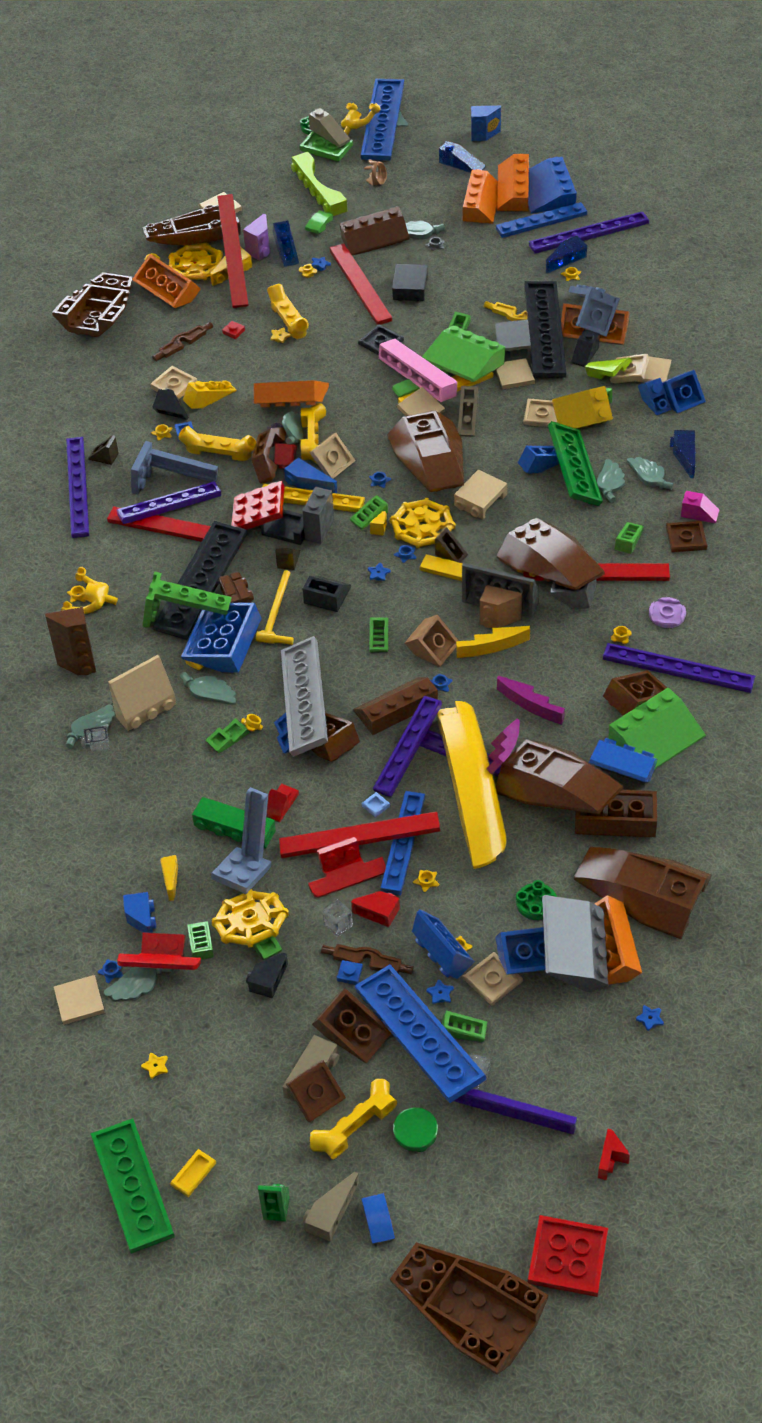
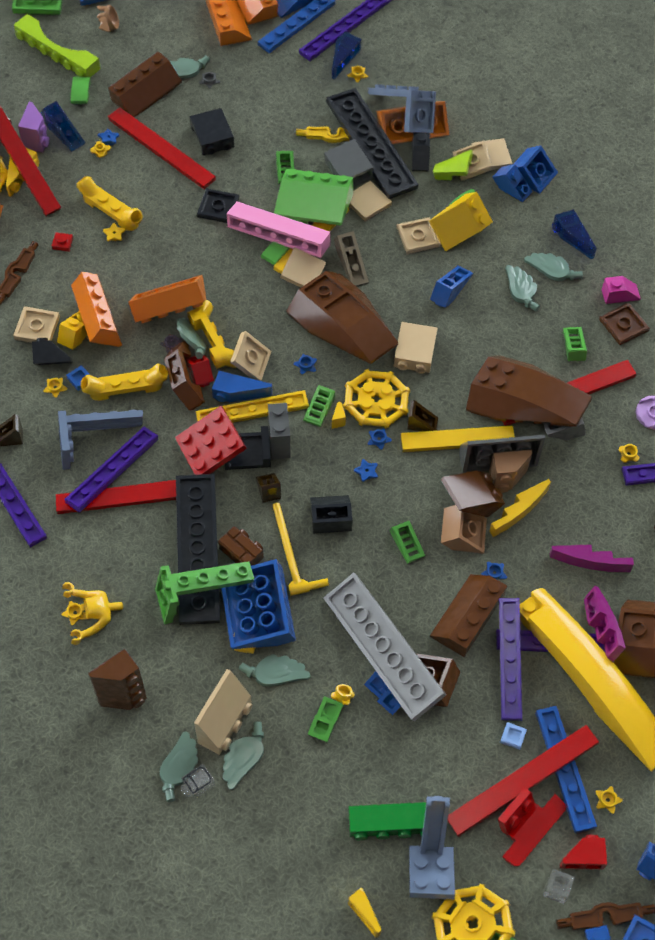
camera: 30 degrees left, 10 degrees up
(145, 738) = (243, 756): none -> sand green animal
(226, 384) = (95, 310): none -> orange slope
(280, 801) = (422, 774): red slope -> none
(453, 612) = (474, 493): none -> reddish brown slope
(575, 463) = (484, 282): green plate -> none

